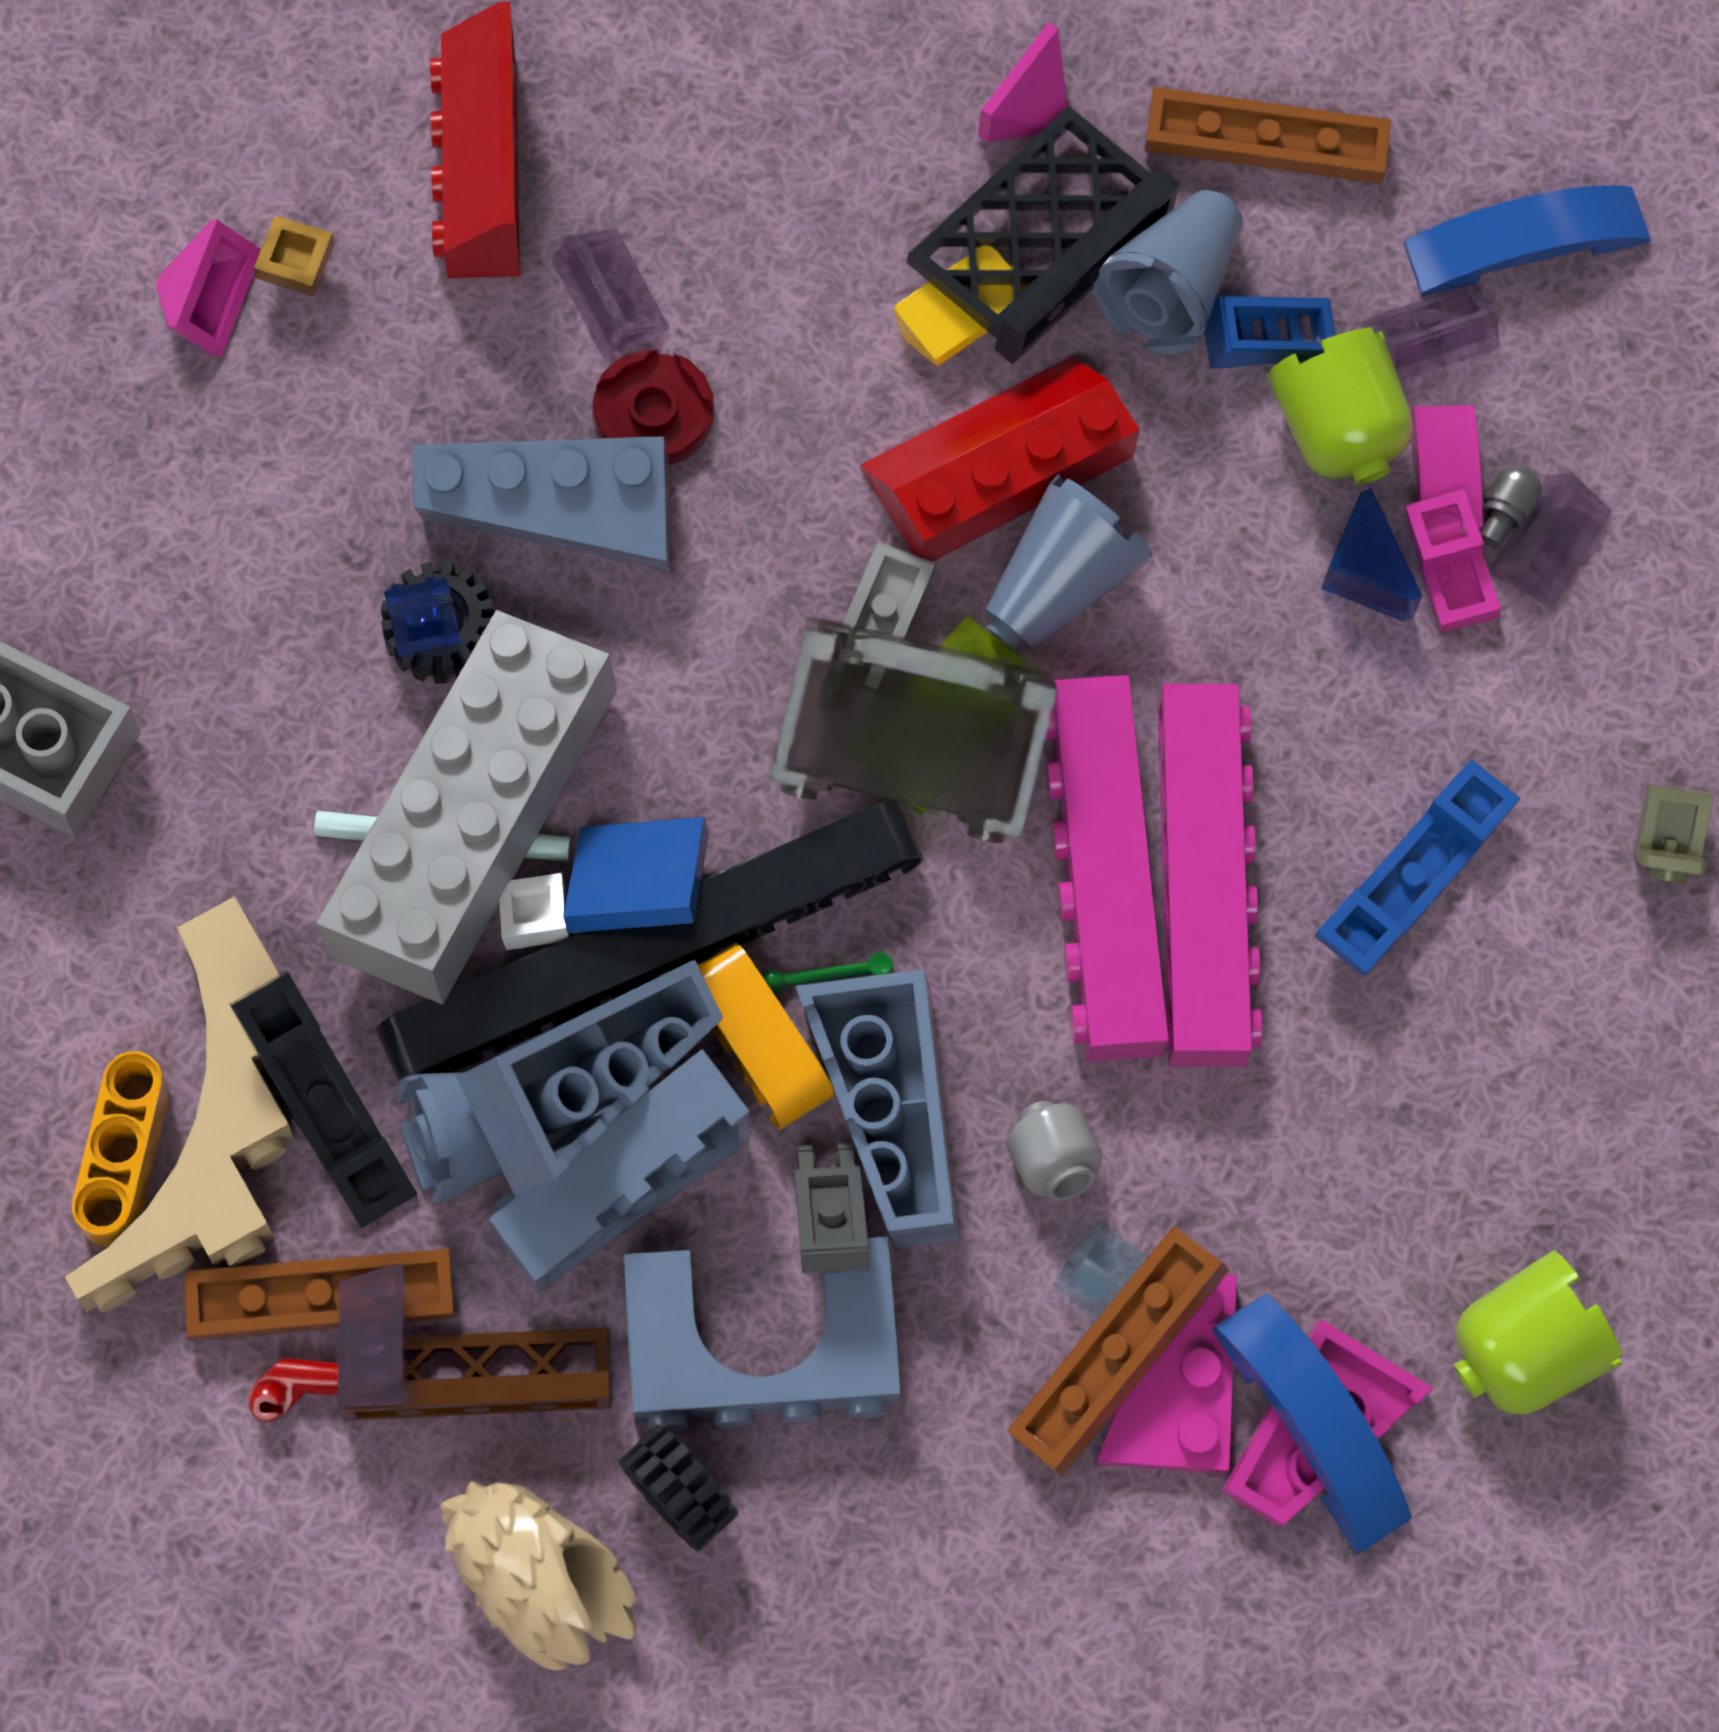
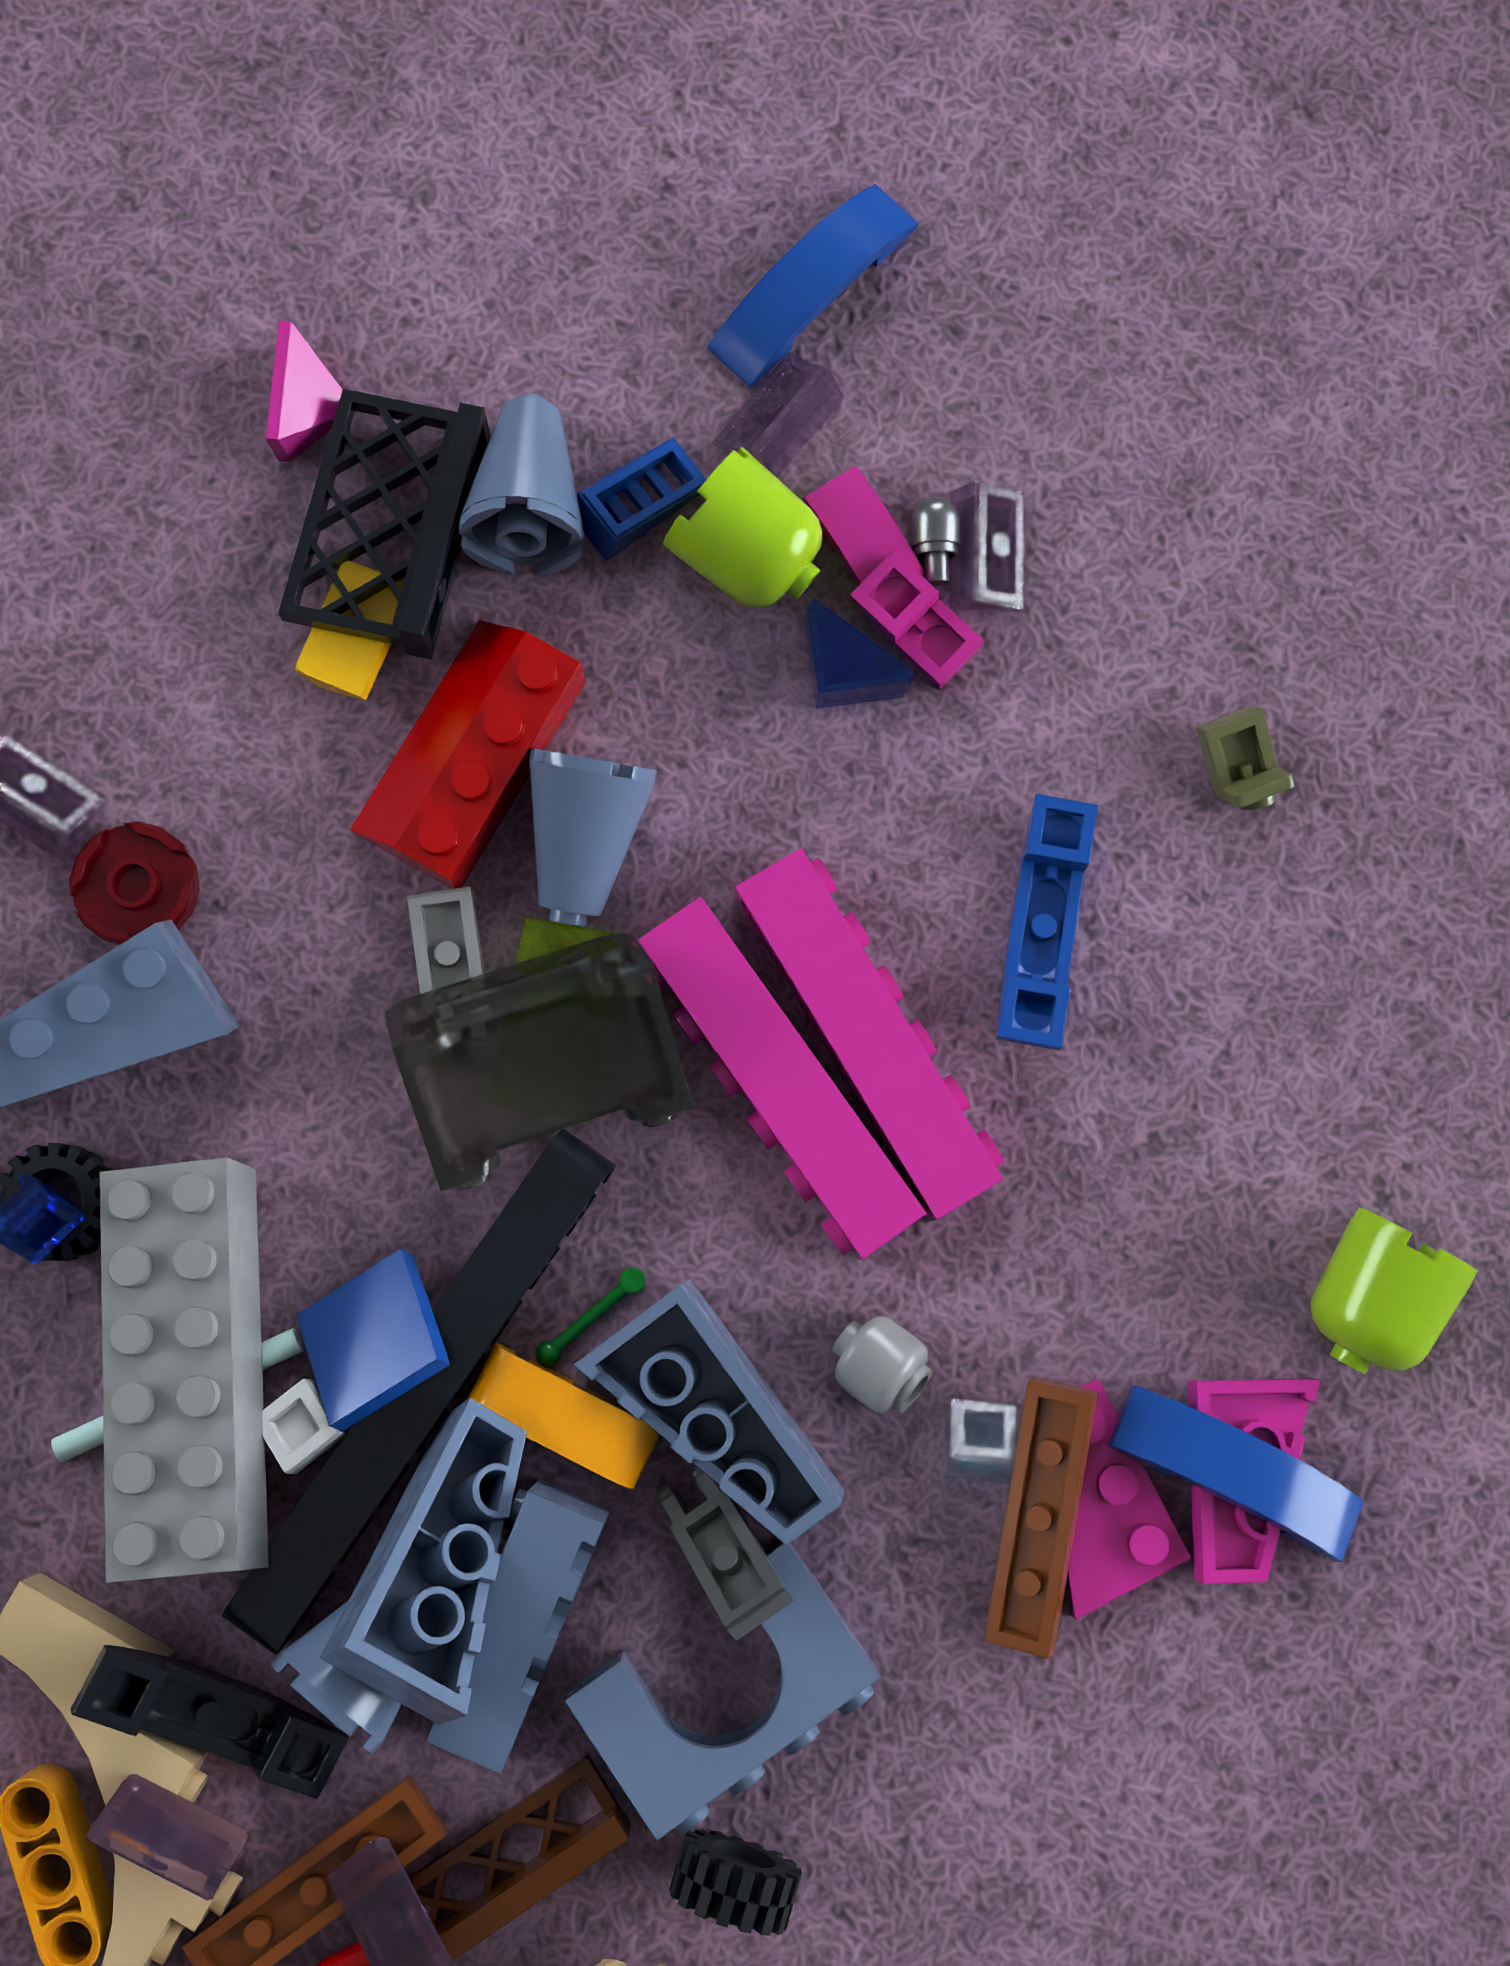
camera: 30 degrees left, 10 degrees up
(242, 1160) = (169, 1836): none -> clear purple slope
(1267, 135) = (533, 315): dark orange plate -> none

